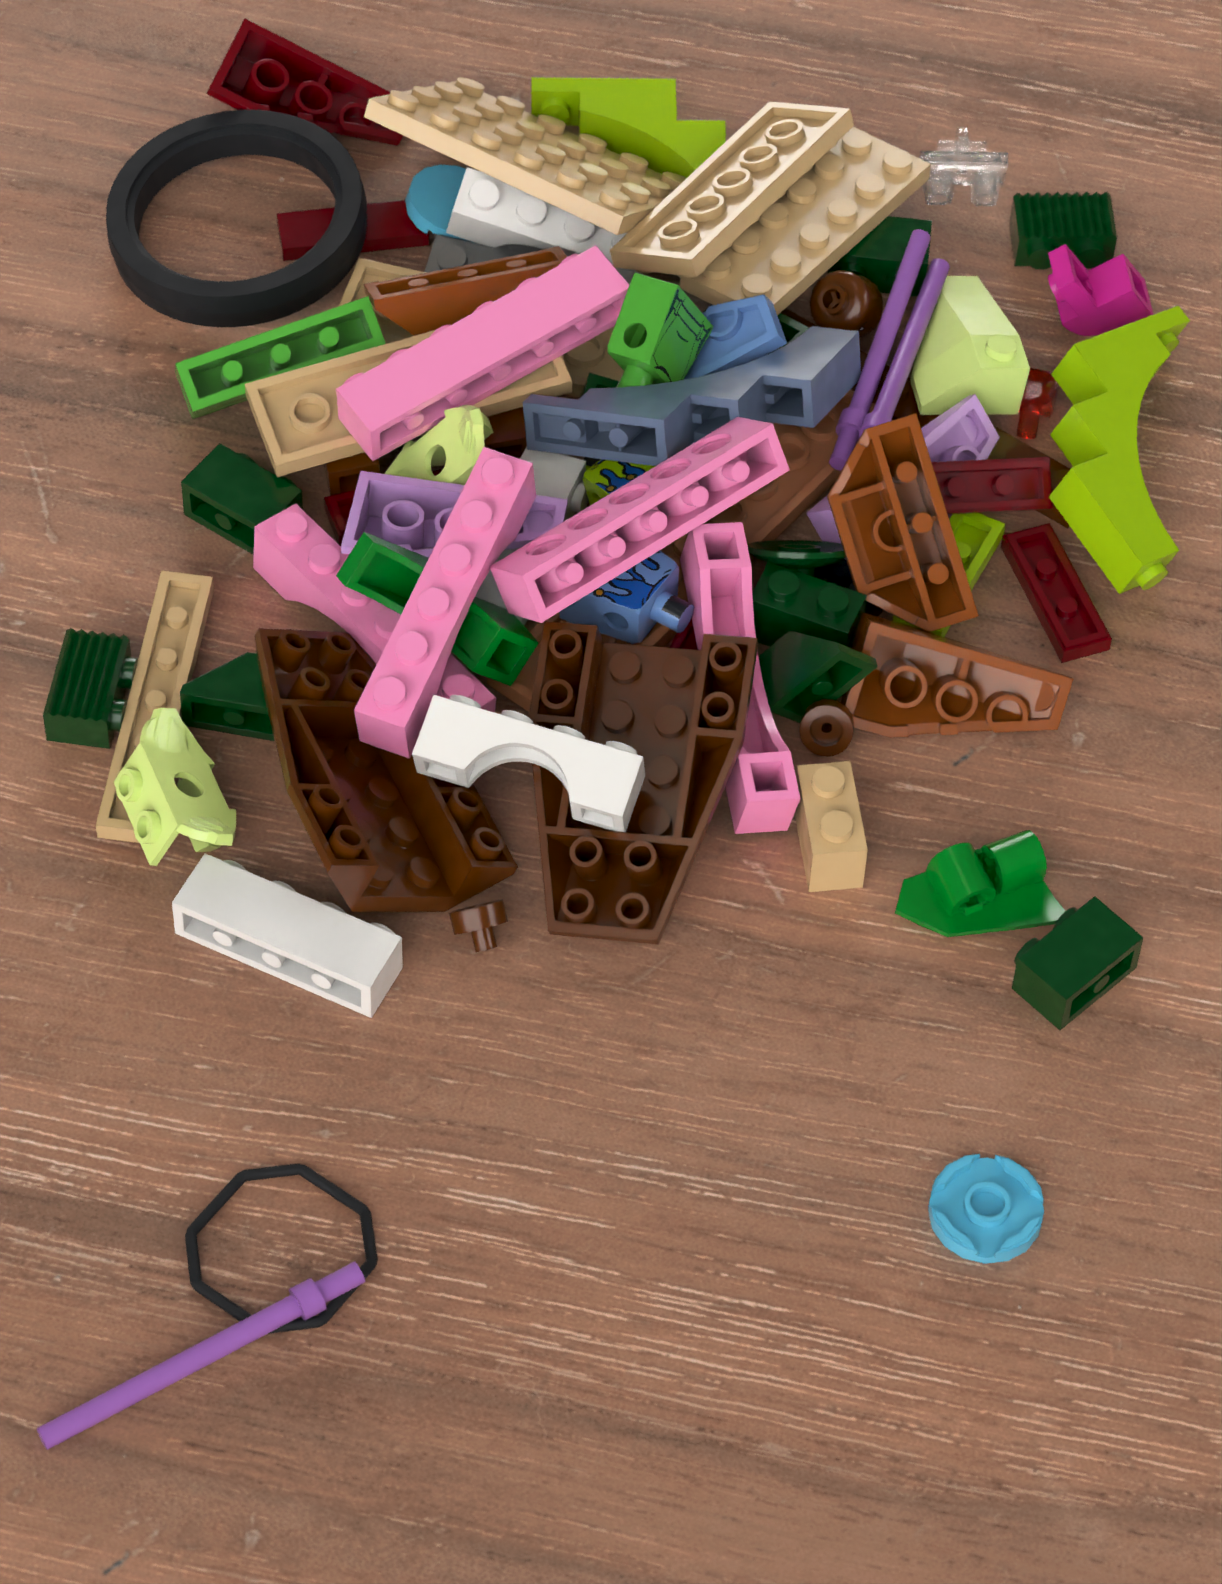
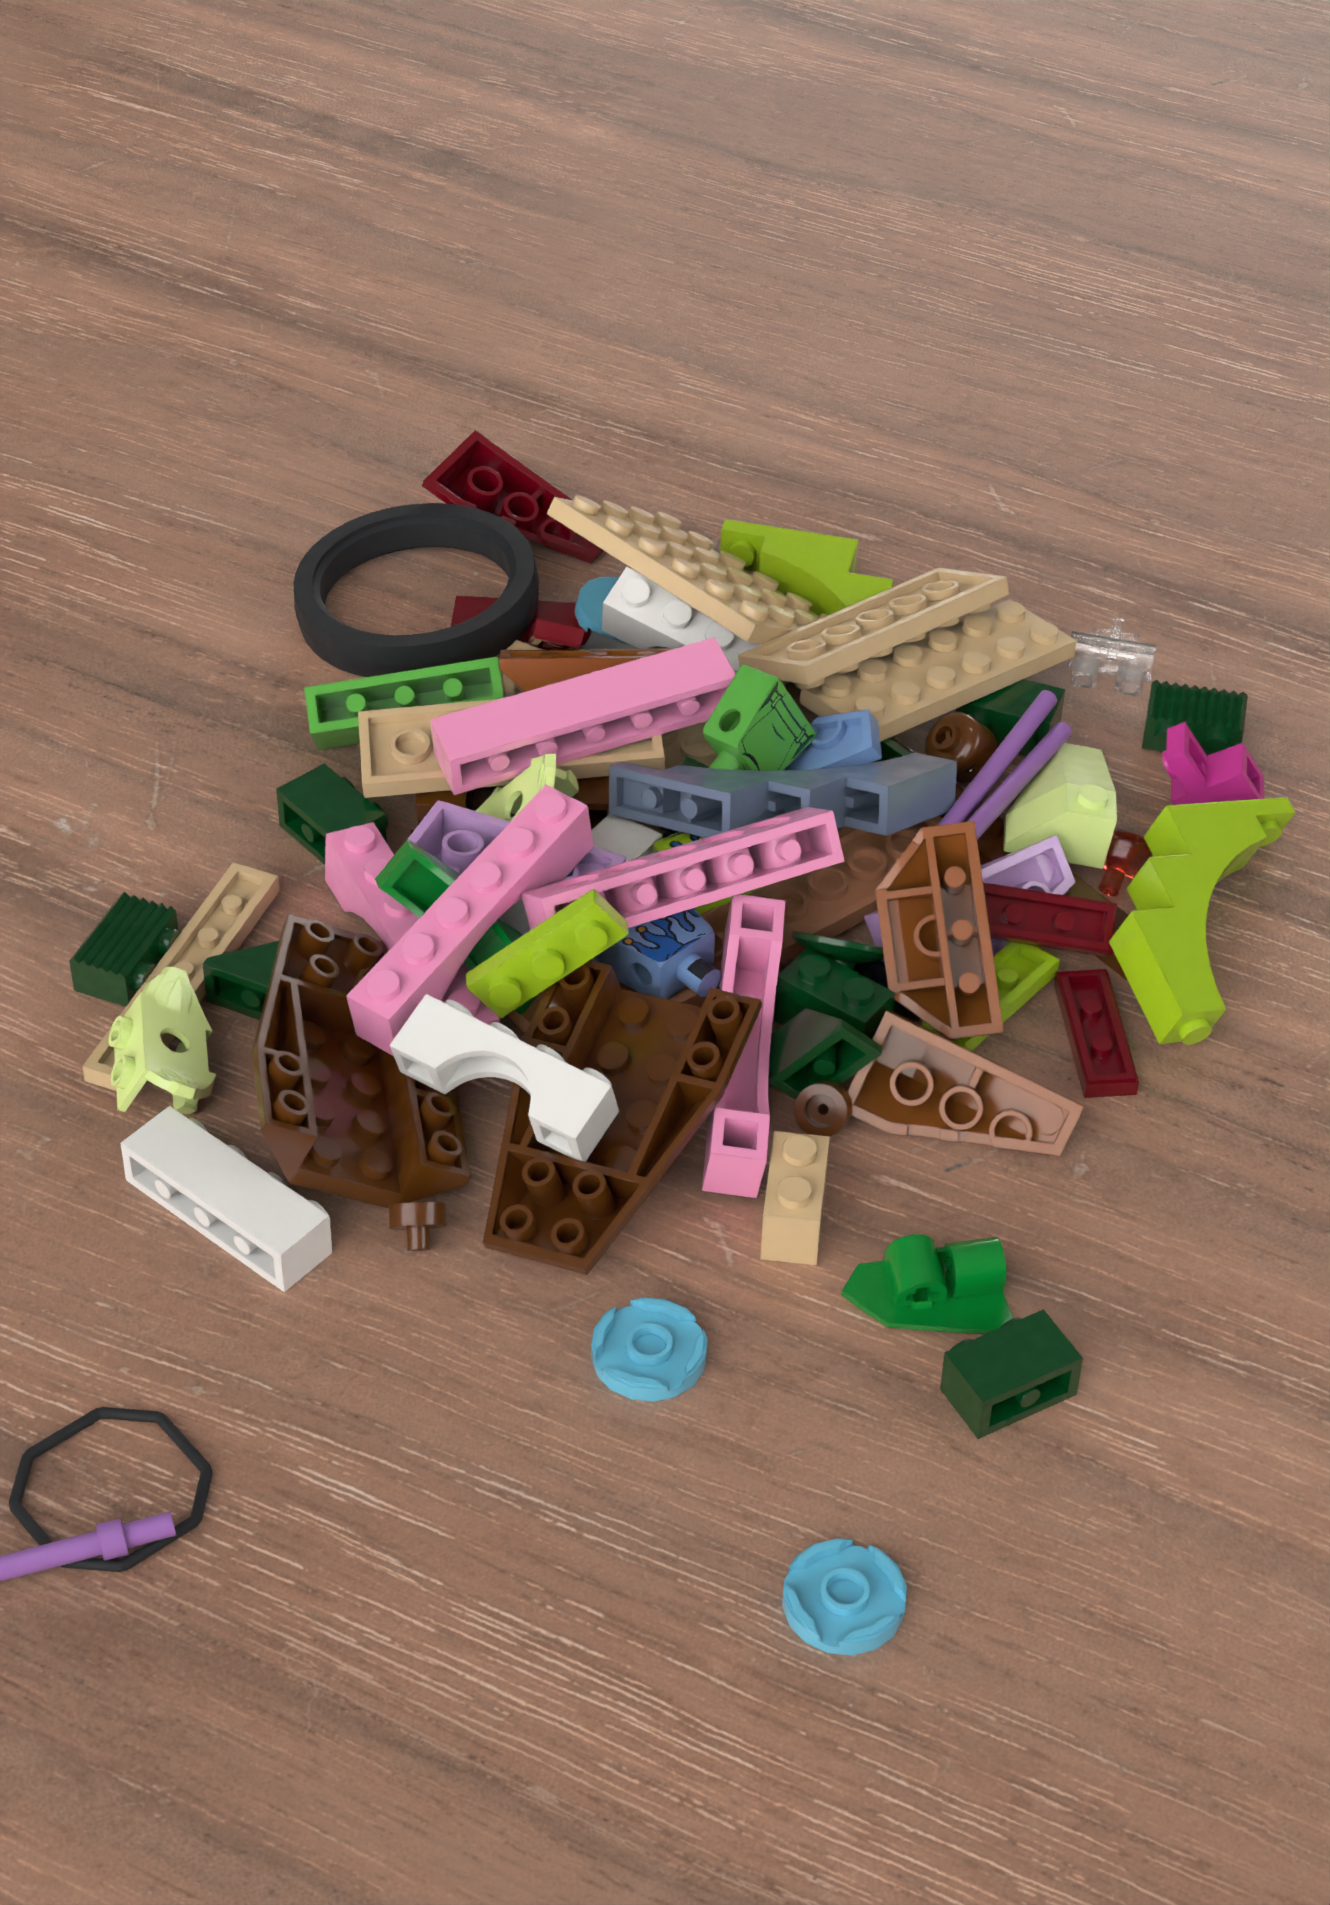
camera: 15 degrees right, 10 degrees down
(407, 254) = (554, 636): none -> dark red tile
(537, 628) = (547, 953): none -> lime plate
(736, 1005) = (649, 1349): none -> medium azure tile

